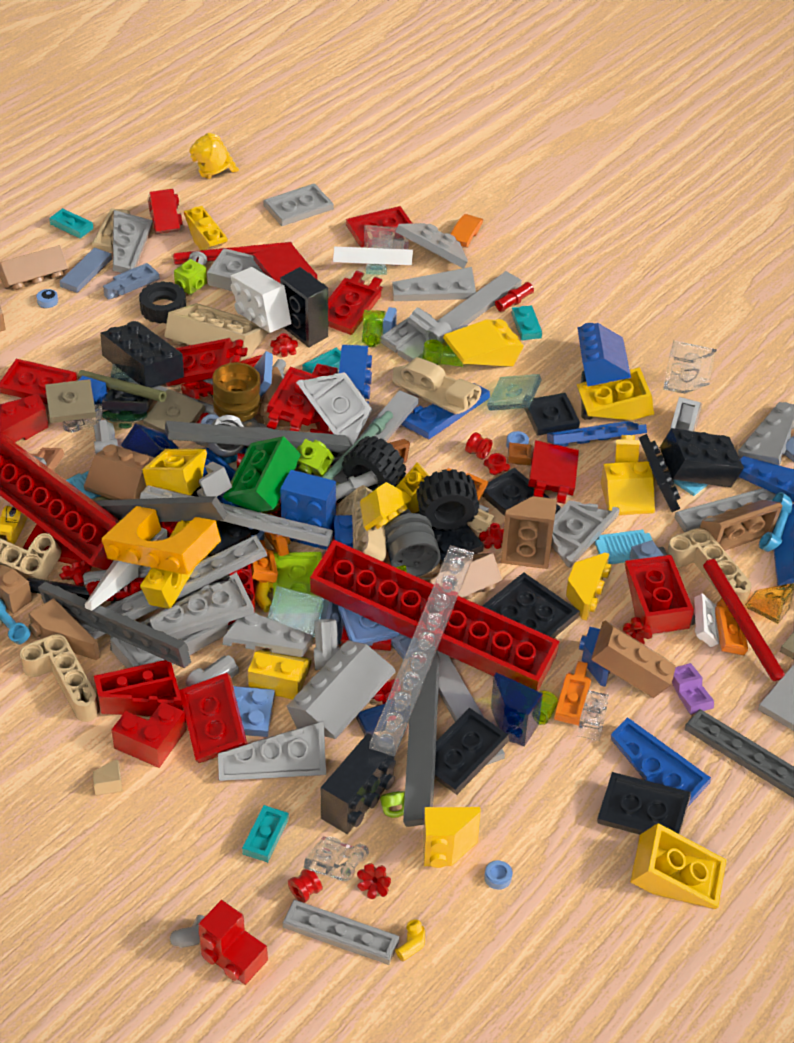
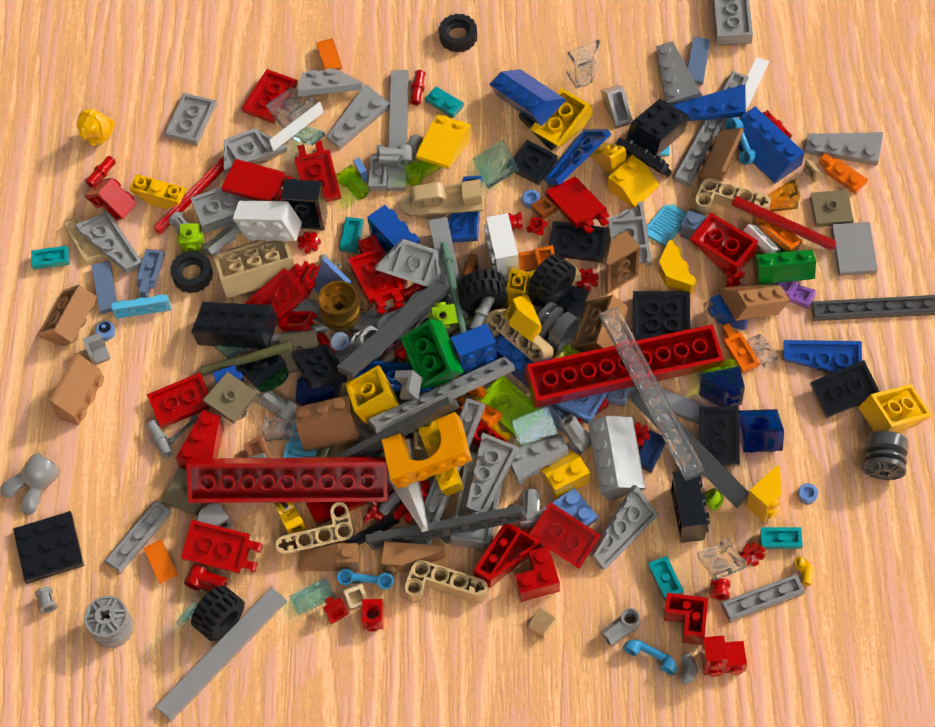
camera: 35 degrees left, 15 degrees up
(22, 303) = (96, 348): none -> light grey panel
(80, 458) = (279, 429): none -> clear leg
(93, 298) = (141, 306): none -> medium azure plate
(152, 426) = (318, 366): none -> black plate
(173, 840) = (619, 628): none -> light grey piece
(175, 909) = (633, 647): none -> dark azure bar
(188, 192) = (100, 171): none -> red pin
(220, 296) = (224, 237): none -> light grey hinge
(246, 880) = (691, 612): none -> red brick
(317, 249) = (249, 147): none -> light grey wing
(421, 890) = (781, 537): none -> teal plate
(440, 445) = (502, 244): none -> white brick
(510, 778) = (761, 430): none -> clear blue slope
(601, 270) = (458, 21): none -> black tyre
(615, 897) = (886, 455): none -> dark grey wheel
(701, 654) = (784, 266): none -> green slope

